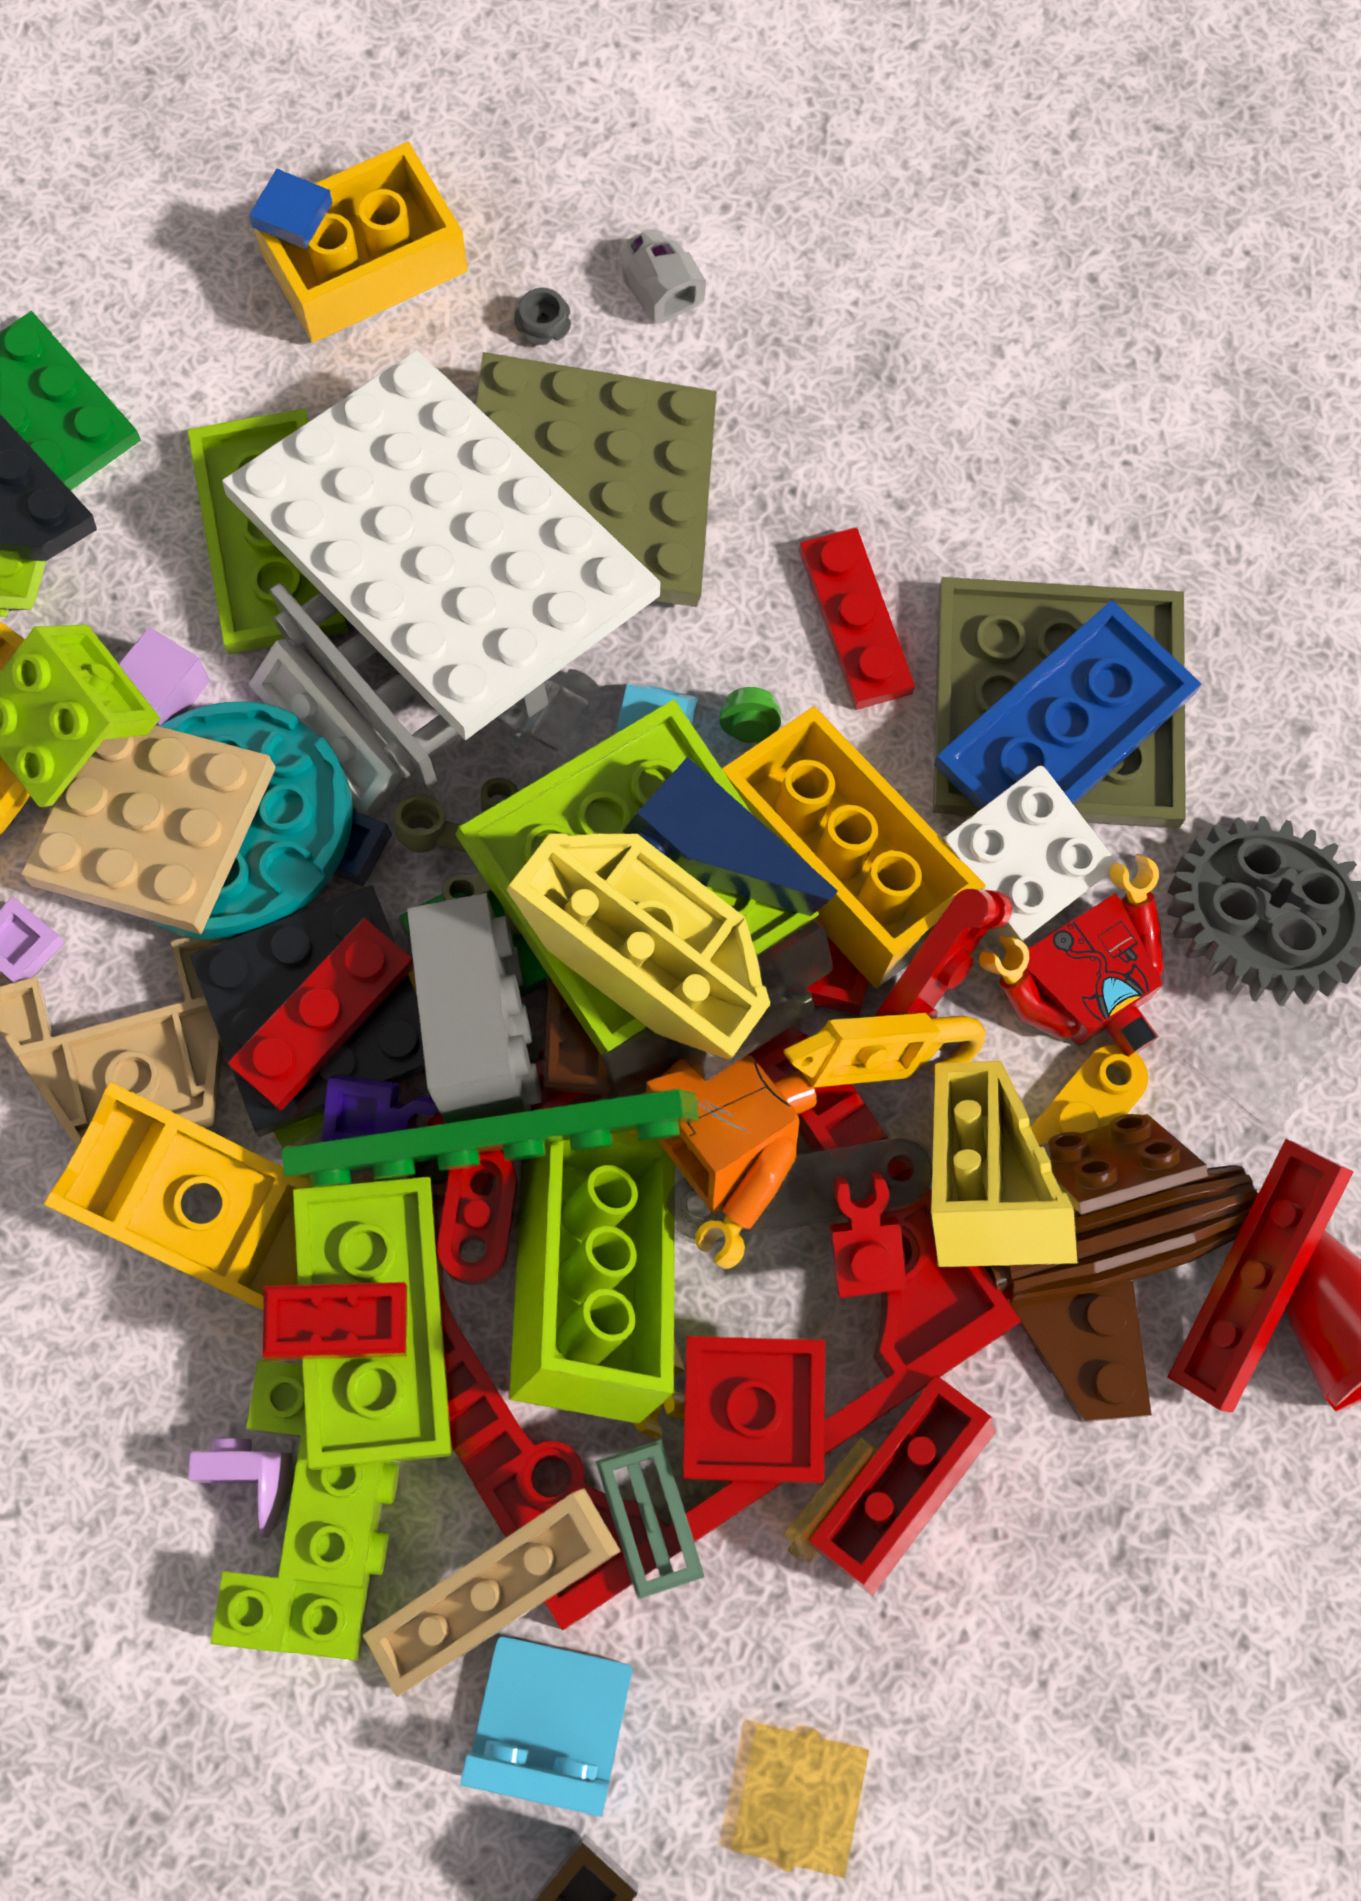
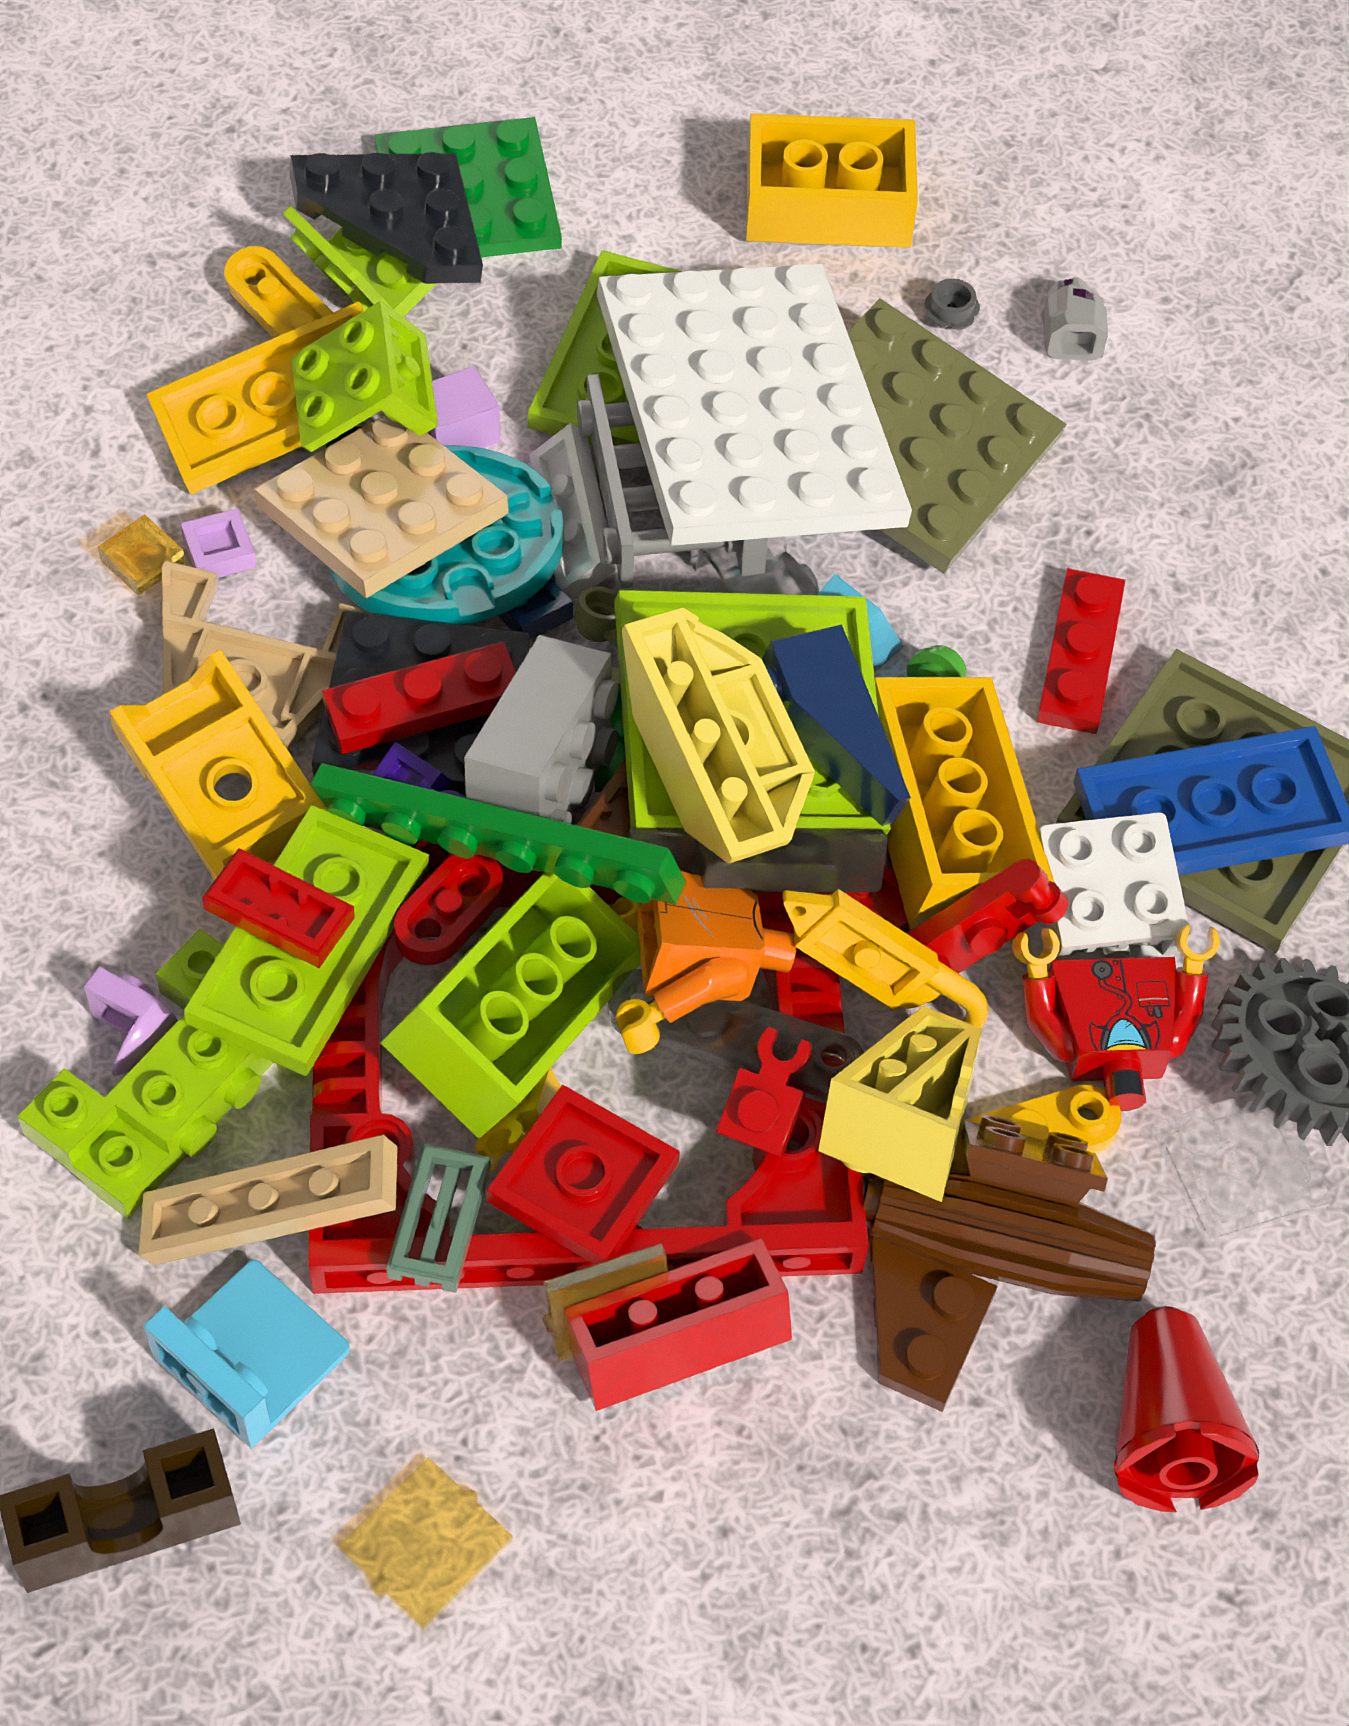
camera: 30 degrees right, 15 degrees down
(290, 208) = (784, 121): blue tile -> none
(1259, 1275) = (1113, 1324): red plate -> none

